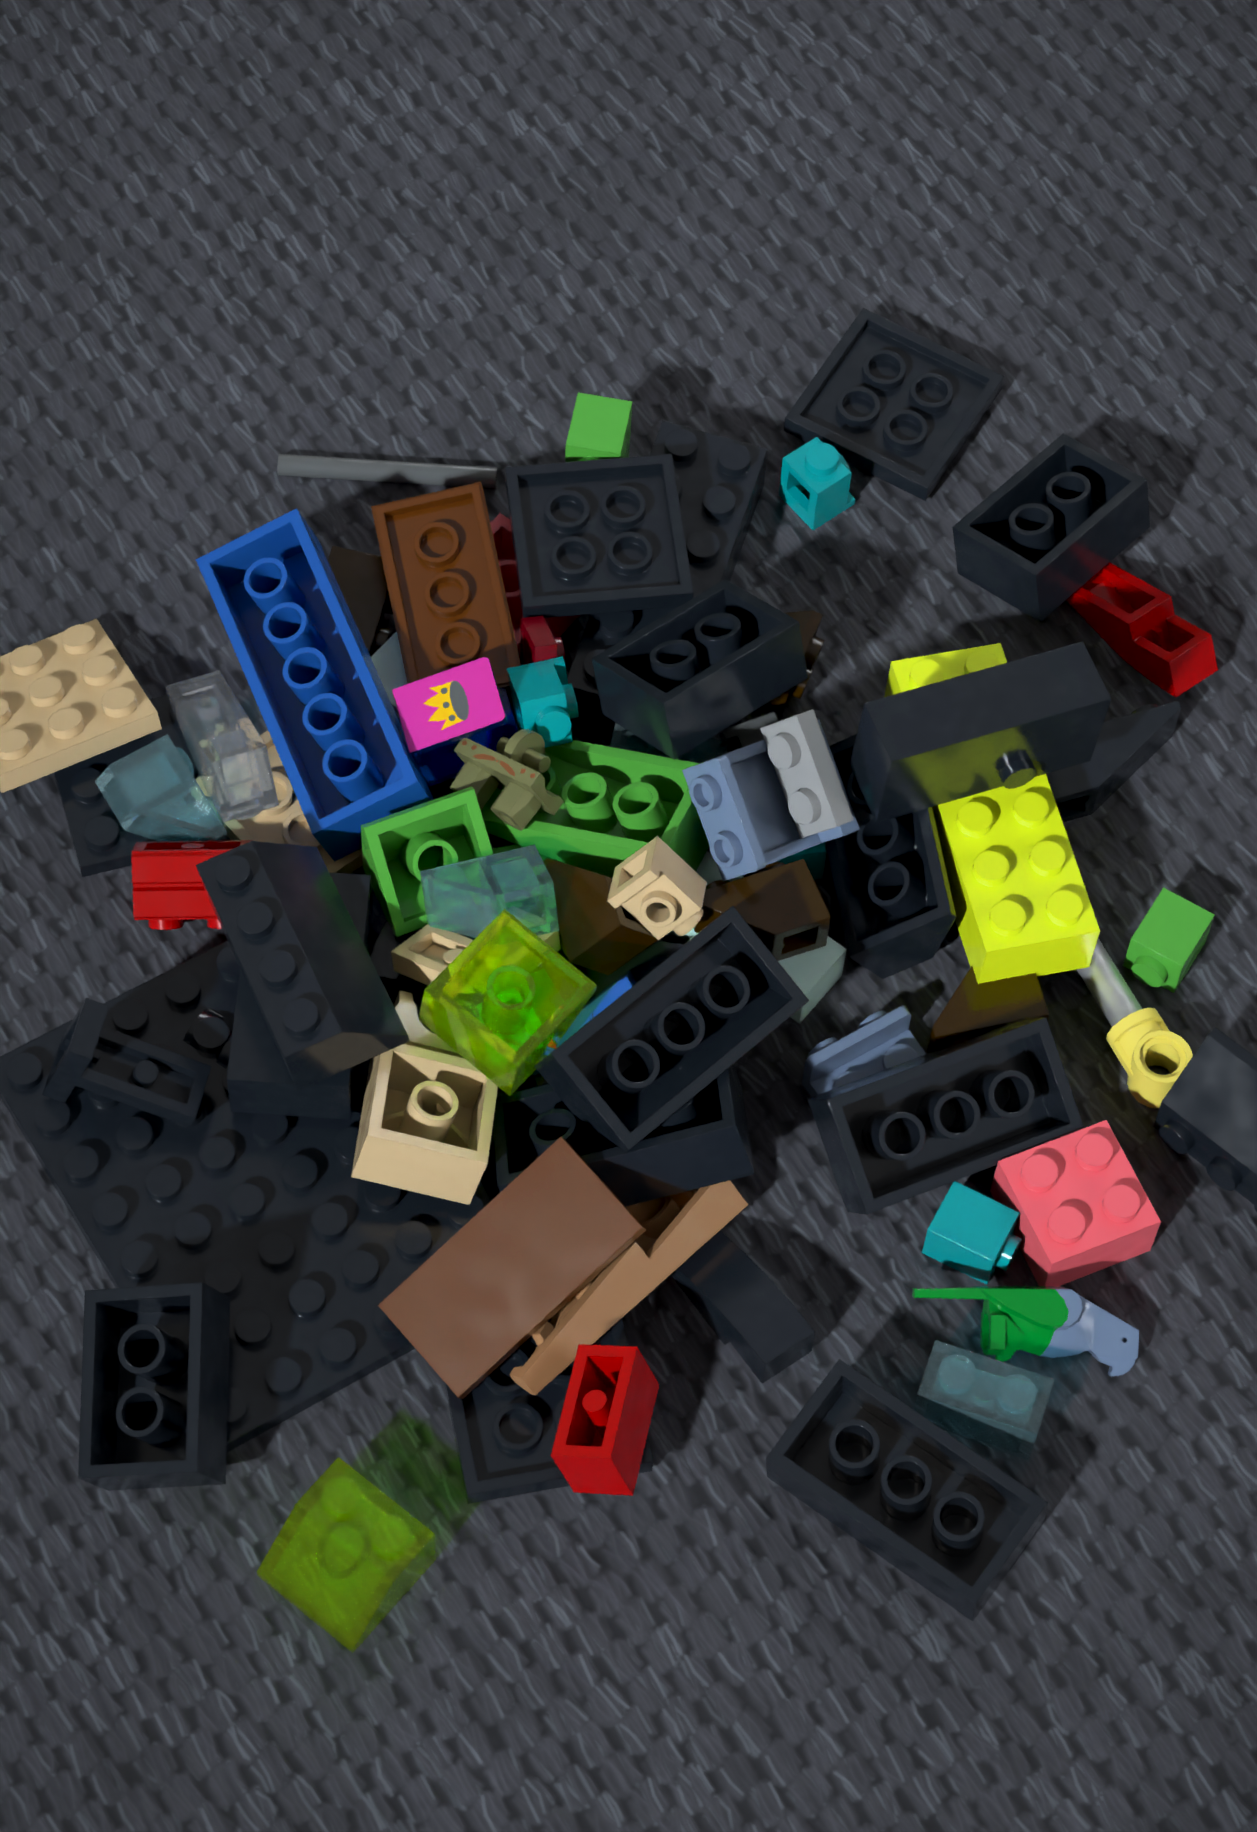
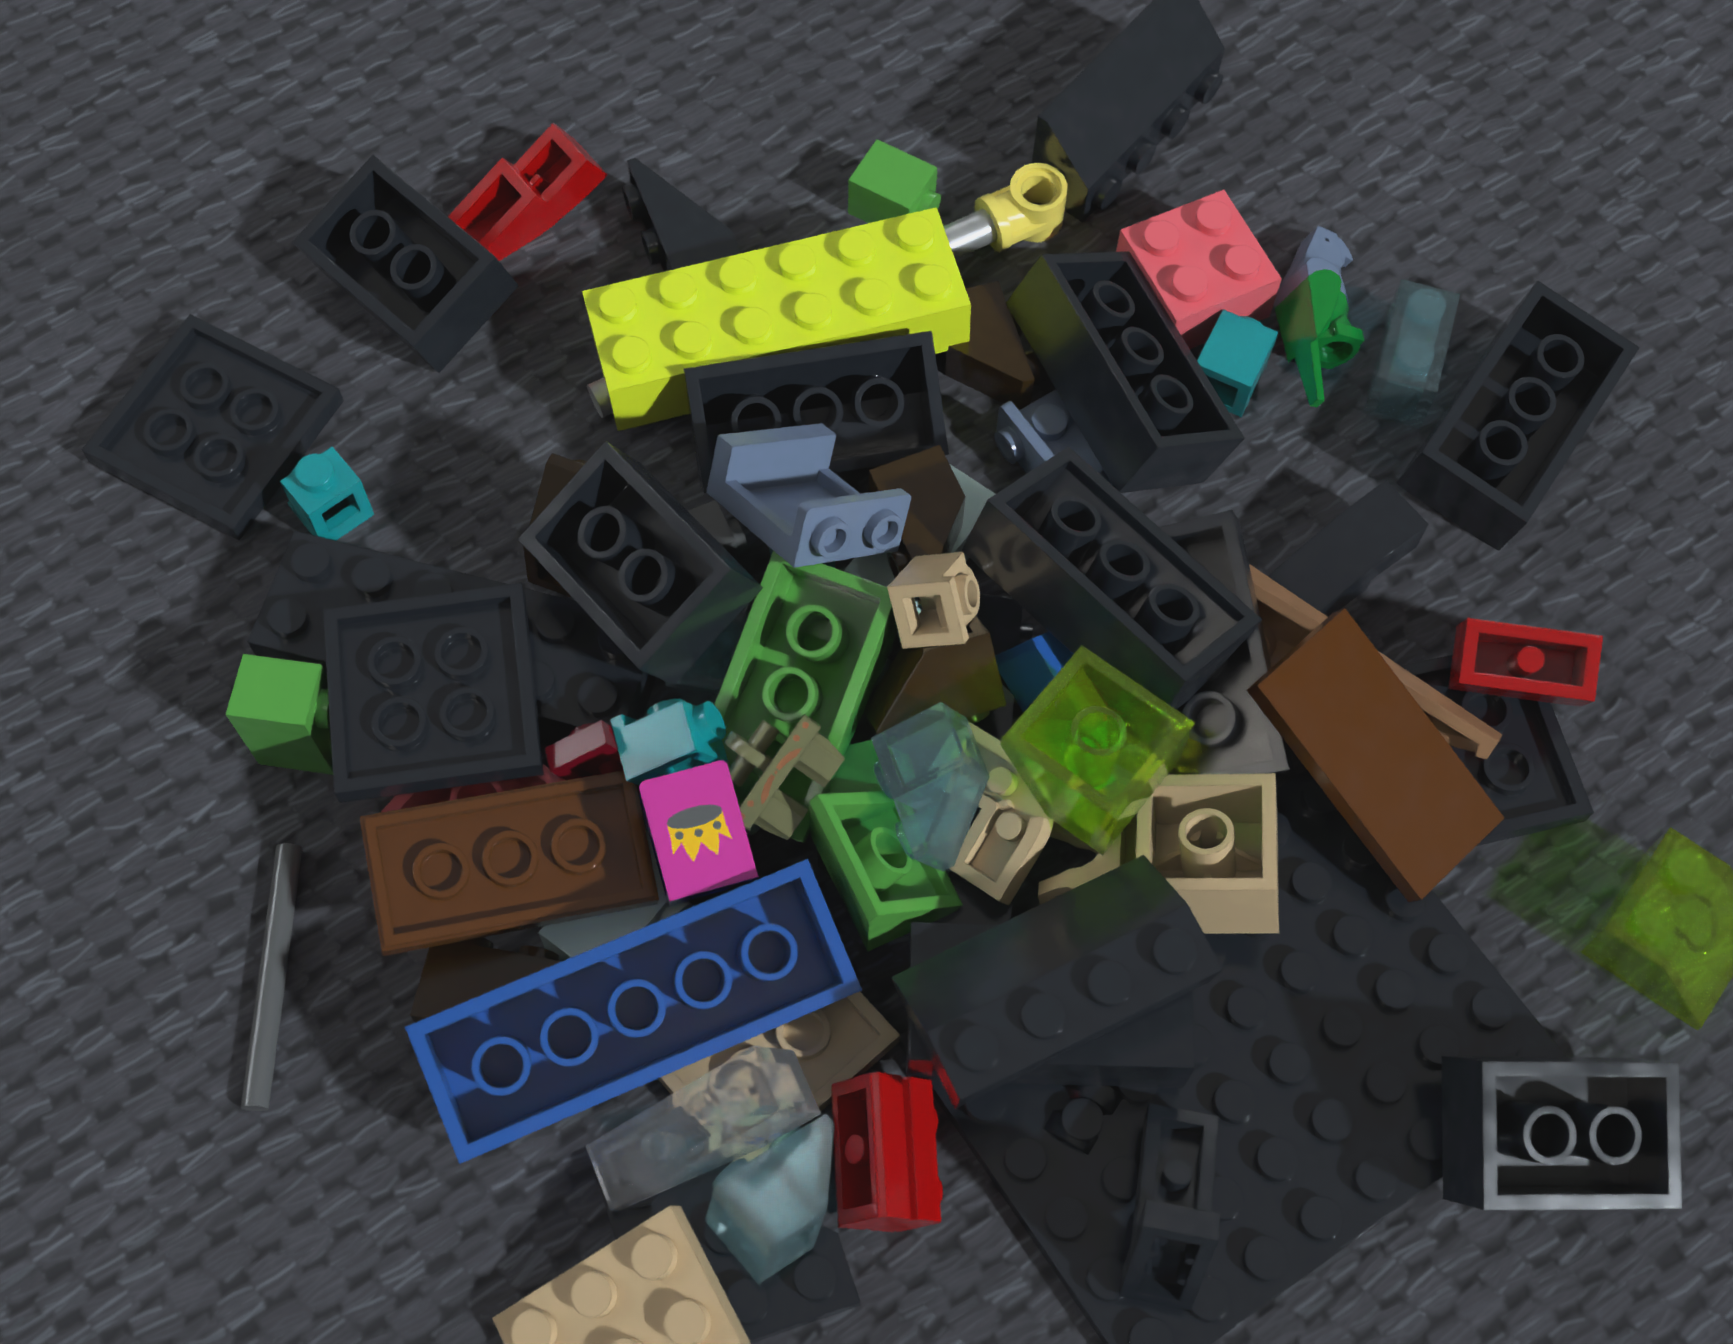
camera: 90 degrees left, 5 degrees up
(806, 774) = (779, 453): light grey plate -> none
(979, 731) = (746, 273): black brick -> none

